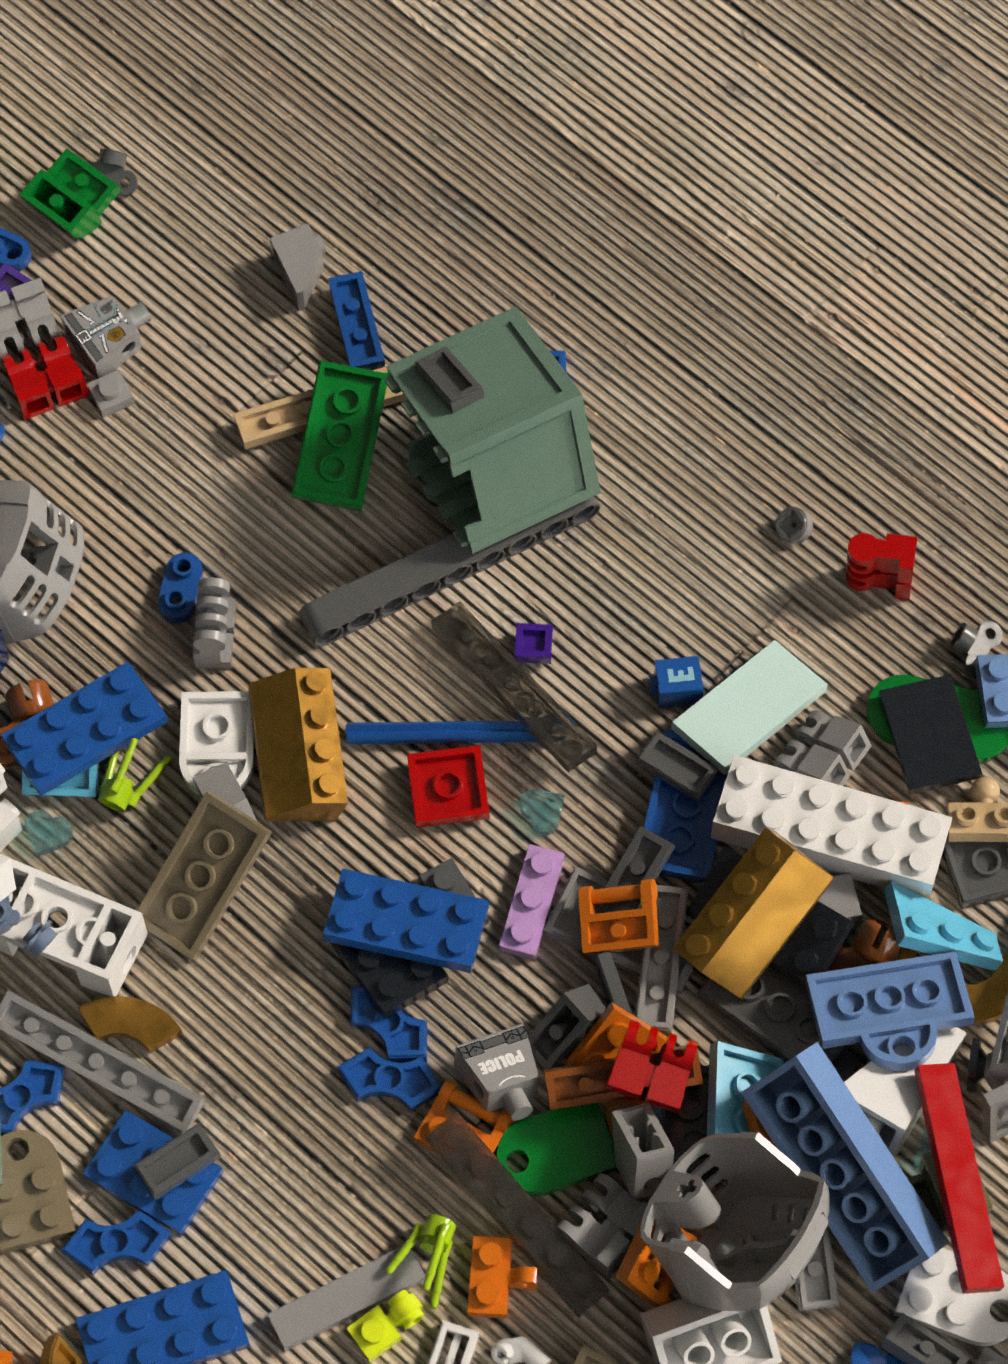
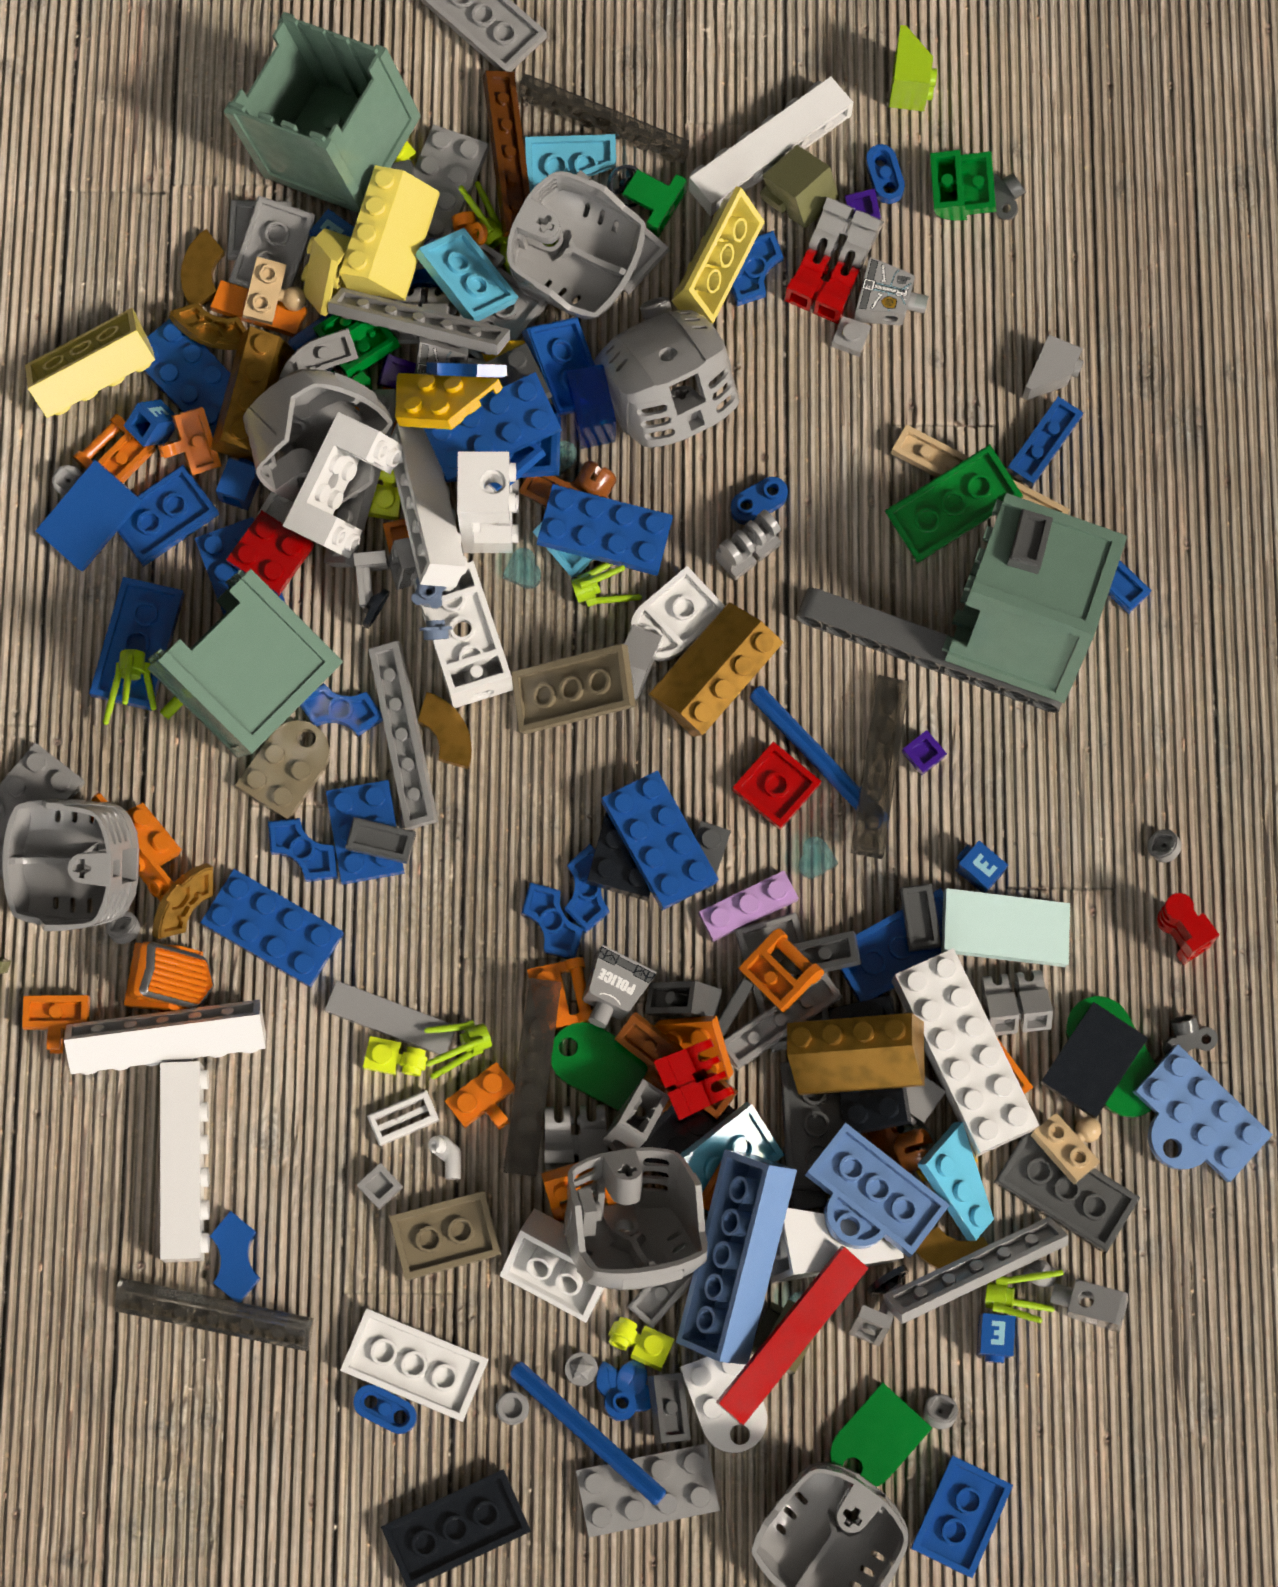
camera: 45 degrees right, 10 degrees up
(853, 1321) = (649, 1347): none -> neon yellow plate

